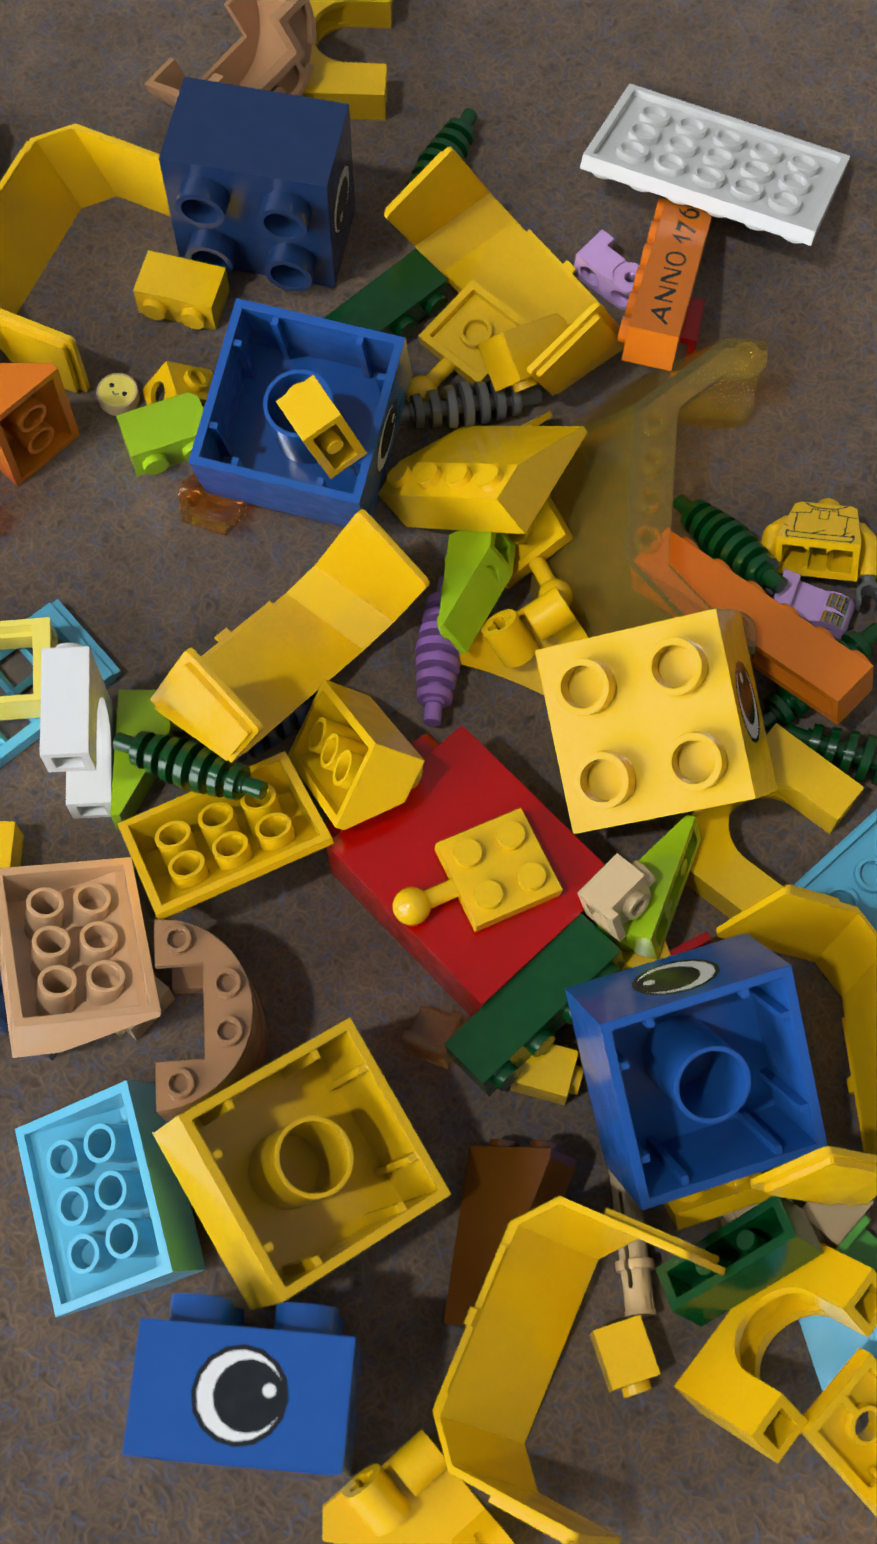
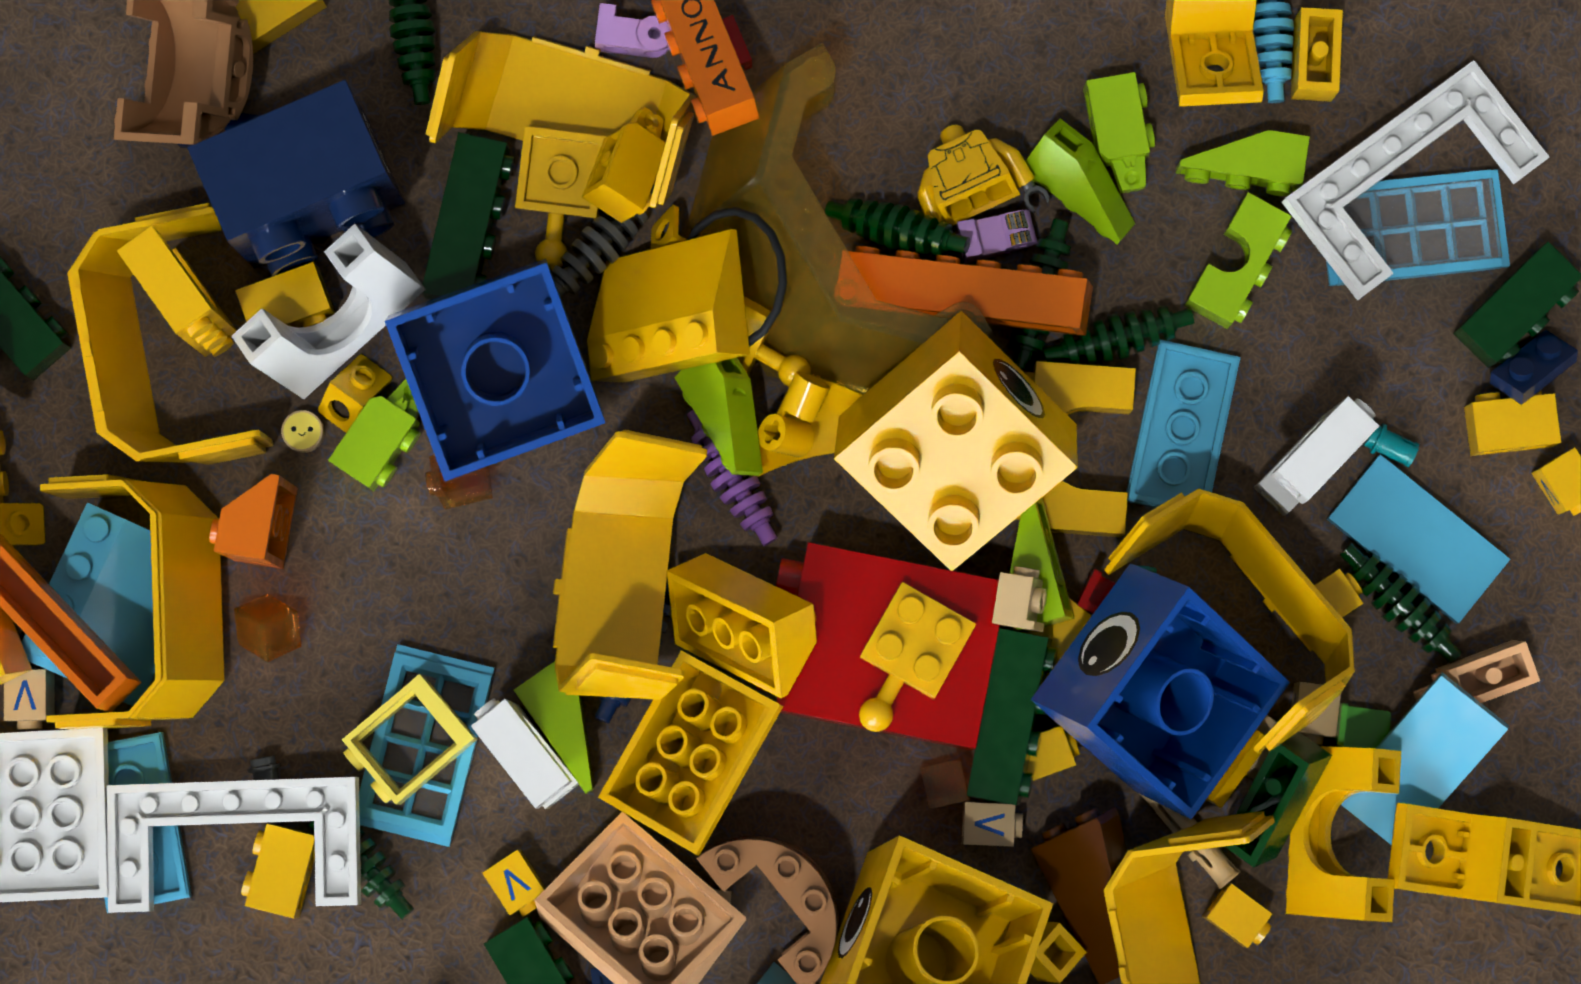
camera: 35 degrees left, 15 degrees up
(97, 216) = (178, 293): none -> yellow arch
(164, 333) = (311, 354): none -> white arch
(189, 765) = (621, 718): dark green piece -> none
(321, 426) = (541, 392): yellow brick -> none
(418, 1255) = (1056, 954): none -> yellow brick
(448, 1099) = (990, 824): none -> tan brick
(600, 480) = (781, 263): none -> black piece

